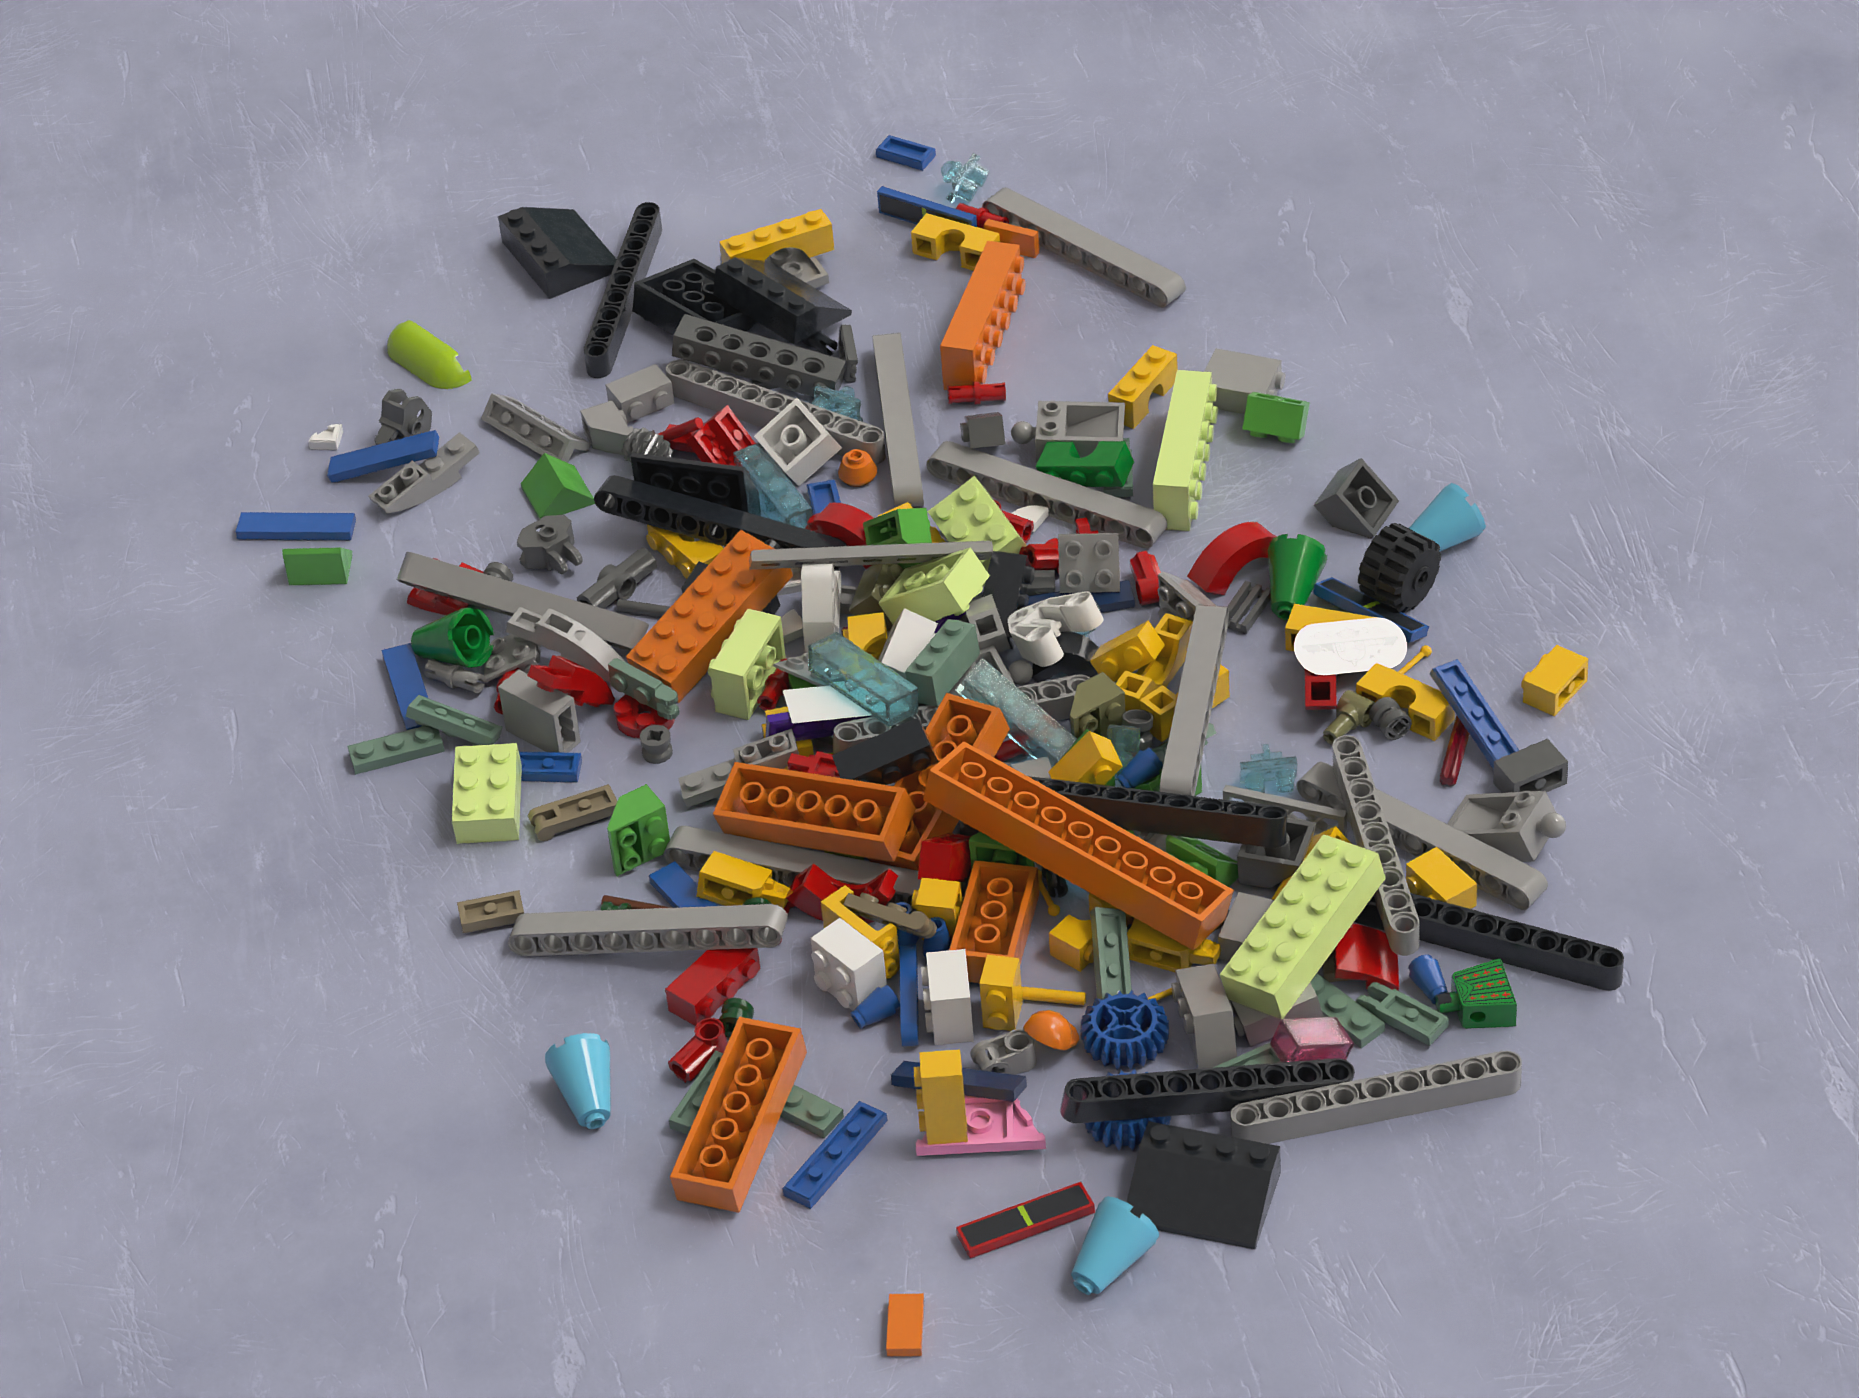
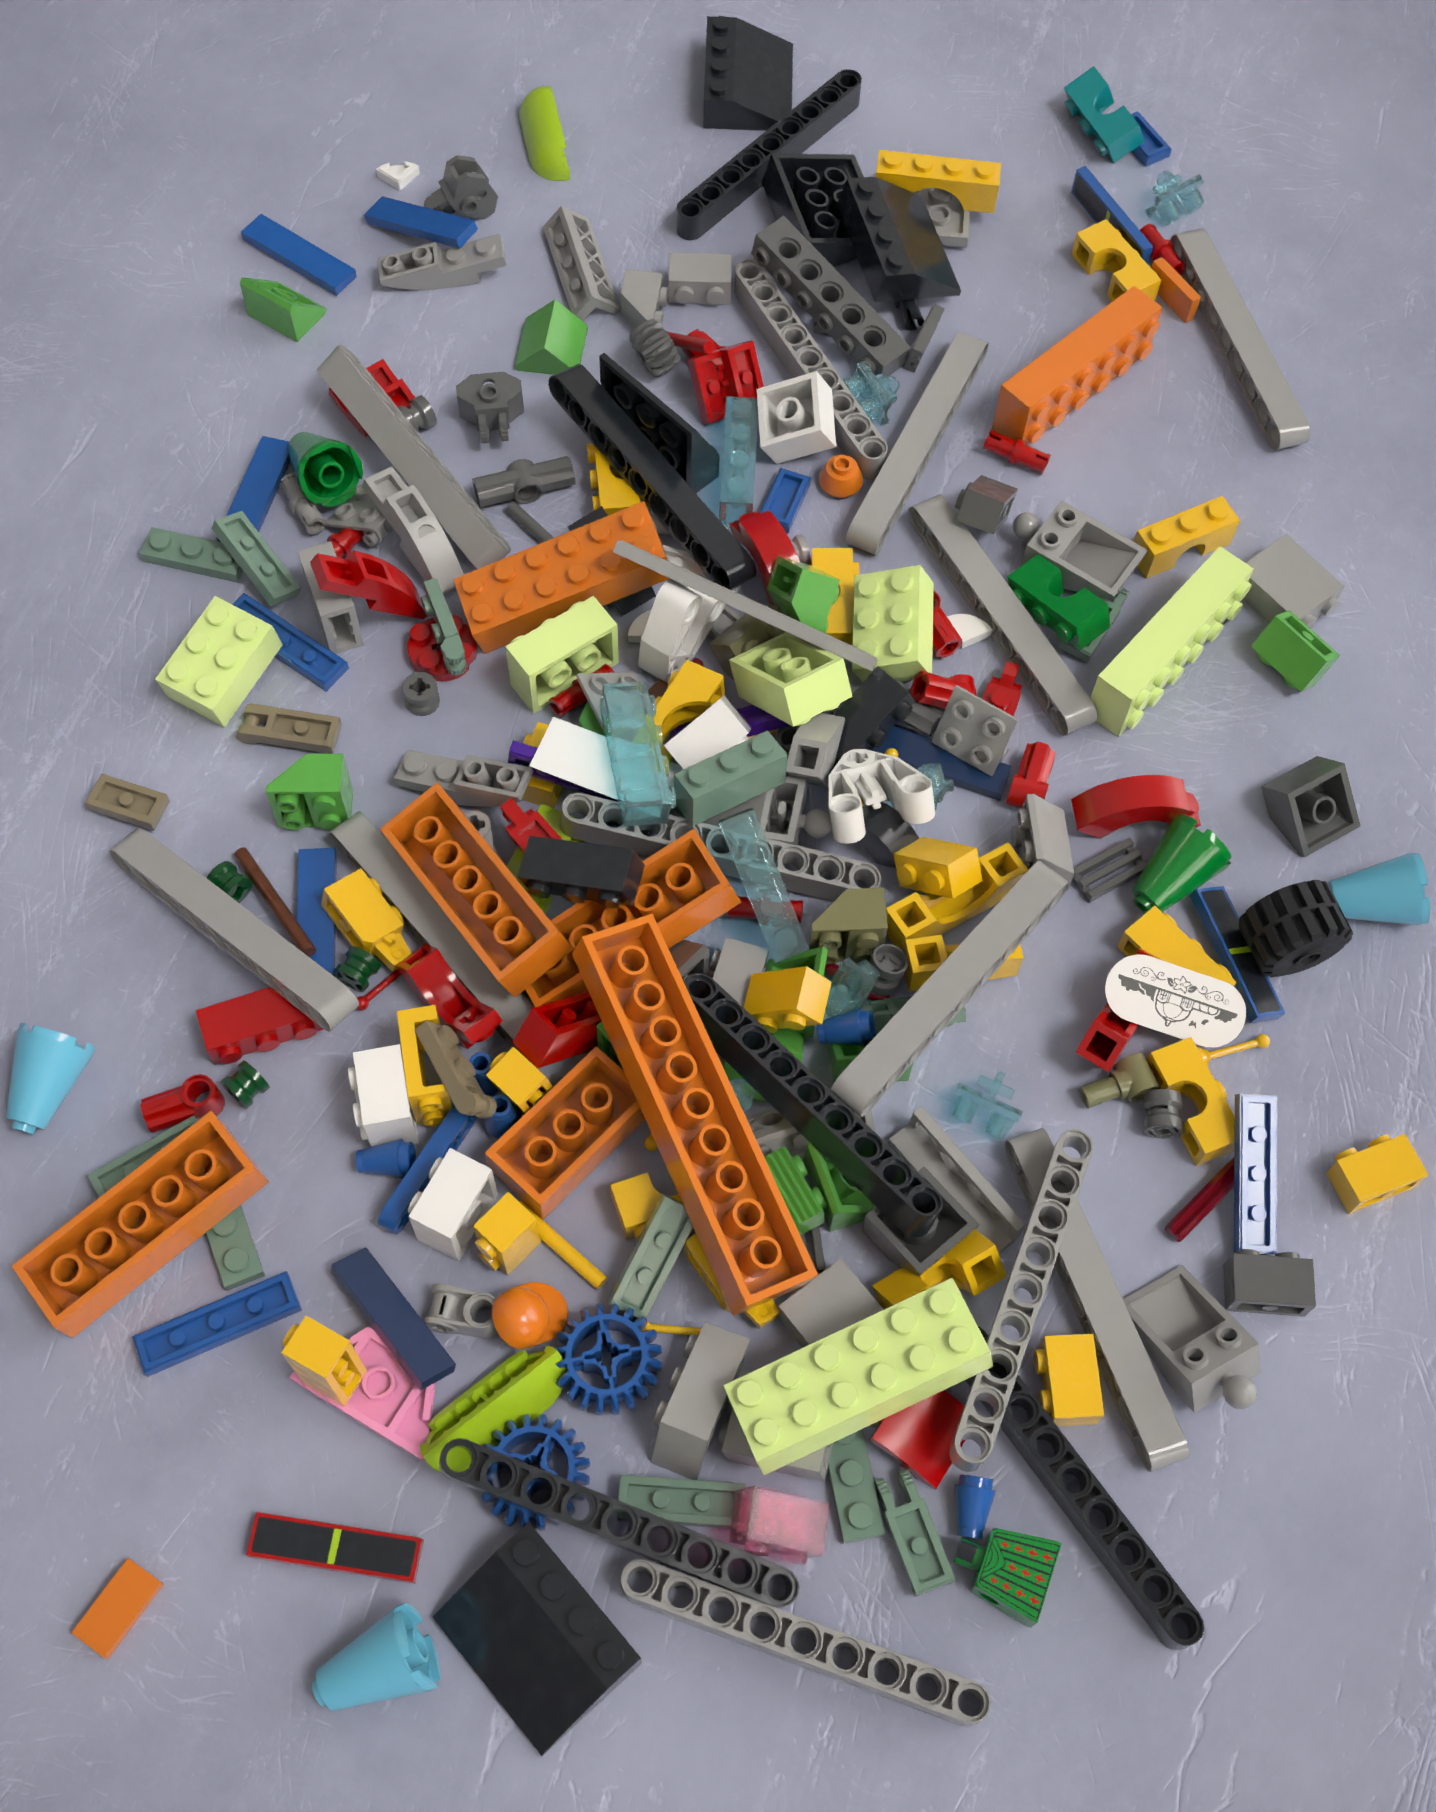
camera: 25 degrees right, 20 degrees up
(883, 156) = (1114, 132): none -> teal arch
(1081, 1063) = (513, 1389): none -> lime brick

